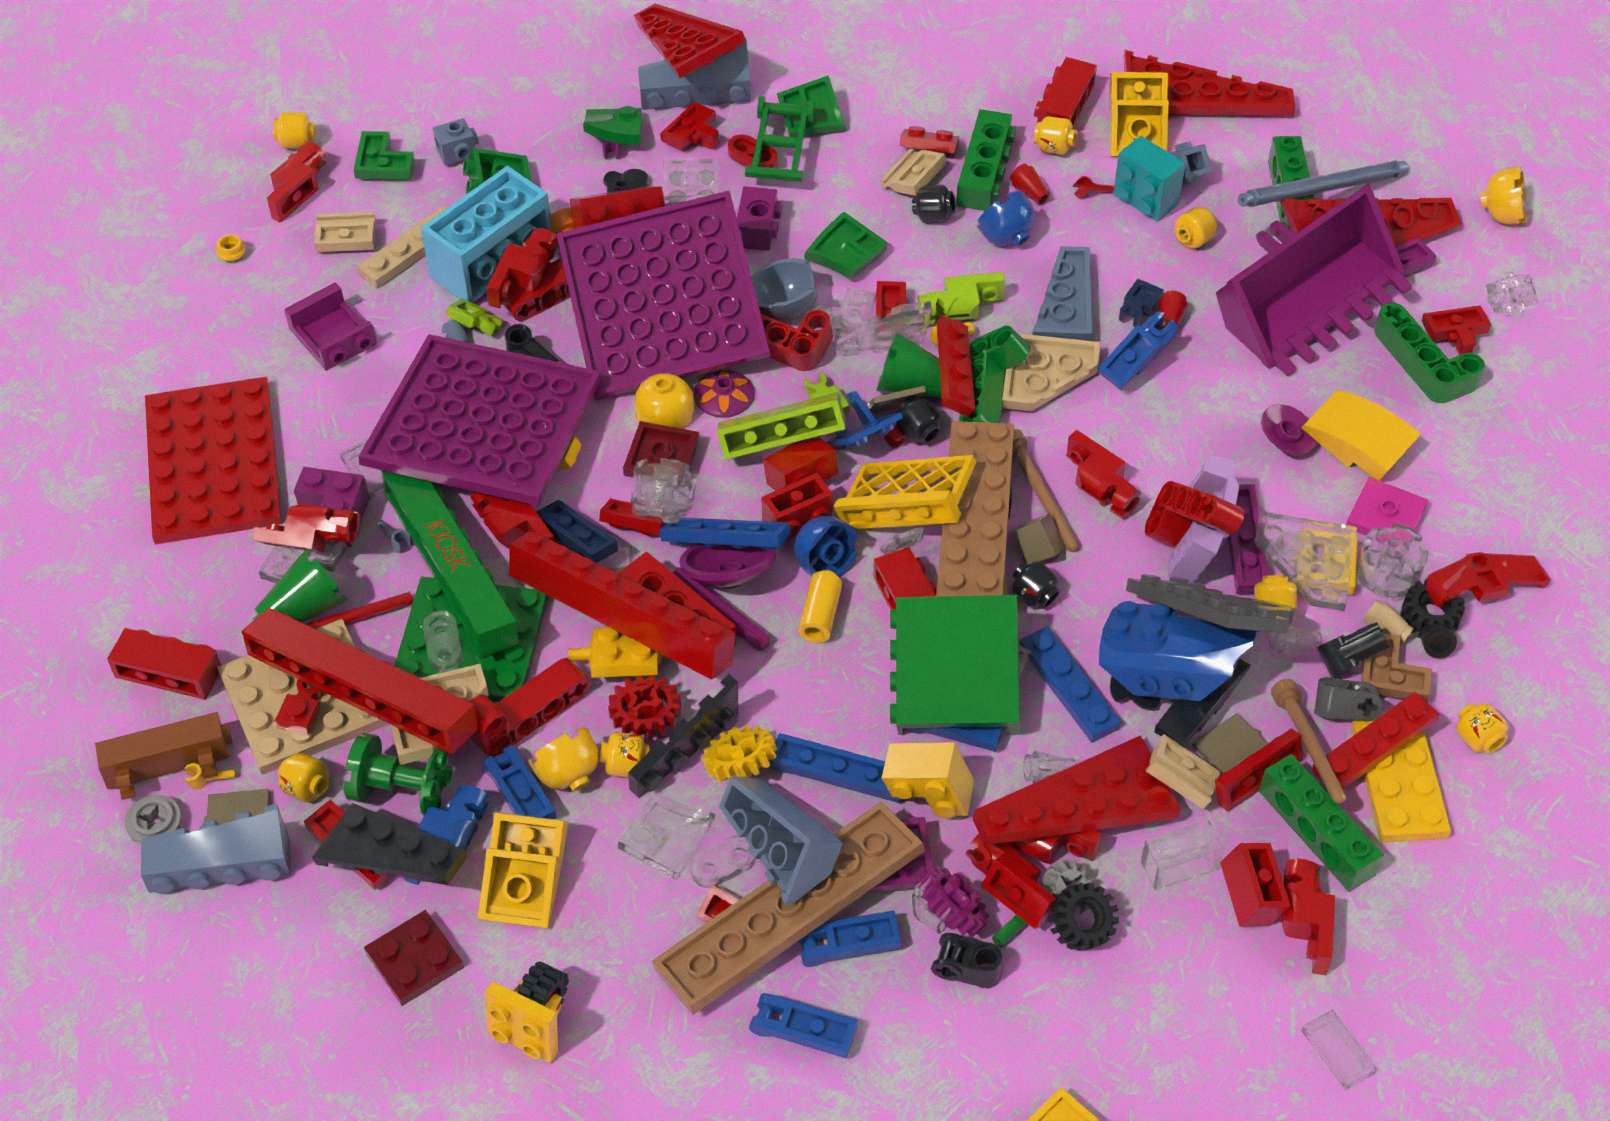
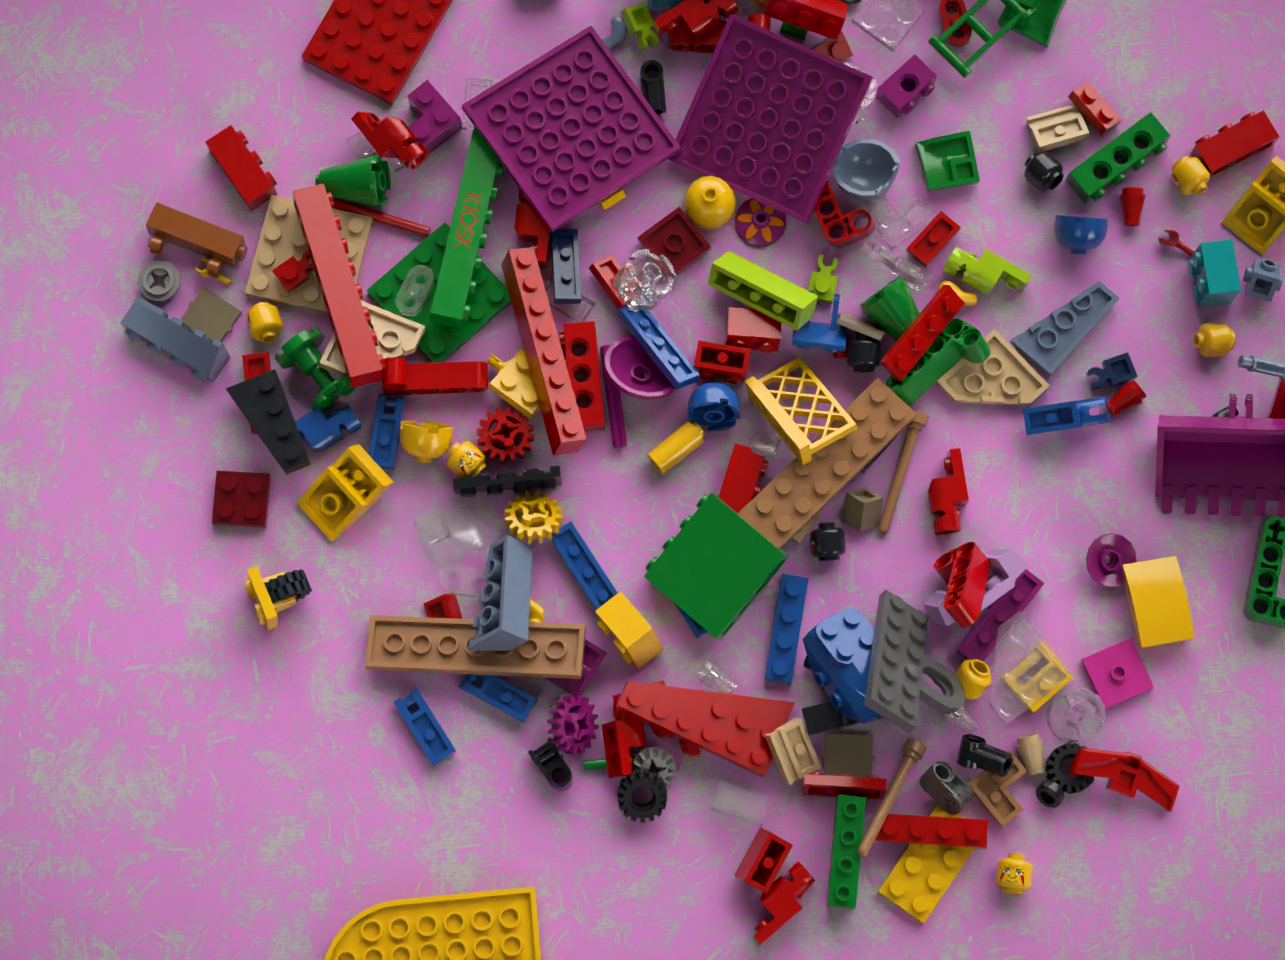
camera: 40 degrees right, 25 degrees up
(395, 535) = (453, 172): sand blue hand -> none

